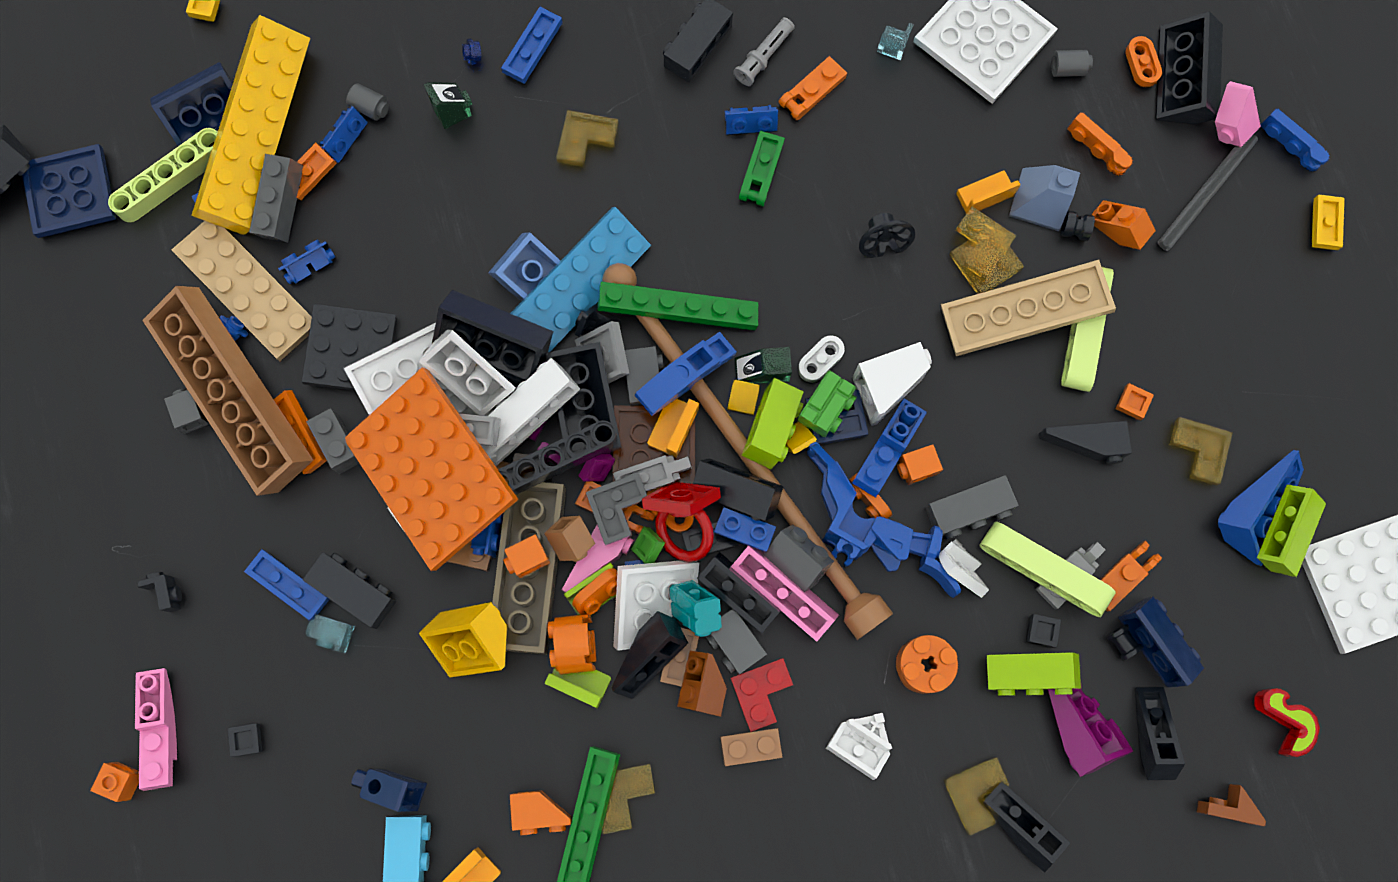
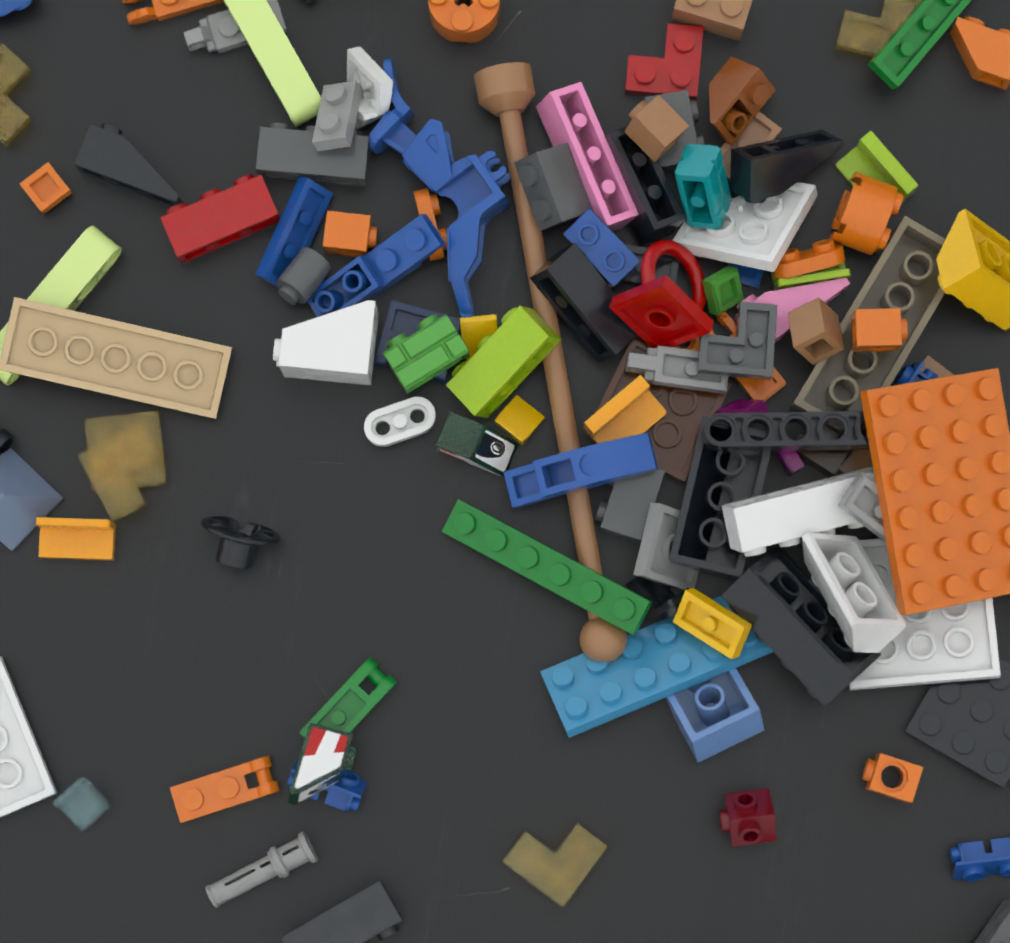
camera: 150 degrees left, 5 degrees up
(382, 273) = (908, 777): none -> orange brick
(474, 213) = (748, 817): none -> dark red brick
(551, 313) = (712, 623): none -> yellow plate
(748, 630) = (655, 127): none -> medium nougat brick
(761, 119) = (321, 761): none -> slope
(935, 419) = (303, 276): none -> dark grey brick
(955, 448) = (294, 228): none -> blue plate
(971, 536) = (337, 116): none -> light grey plate
(1010, 436) = (220, 218): none -> red brick

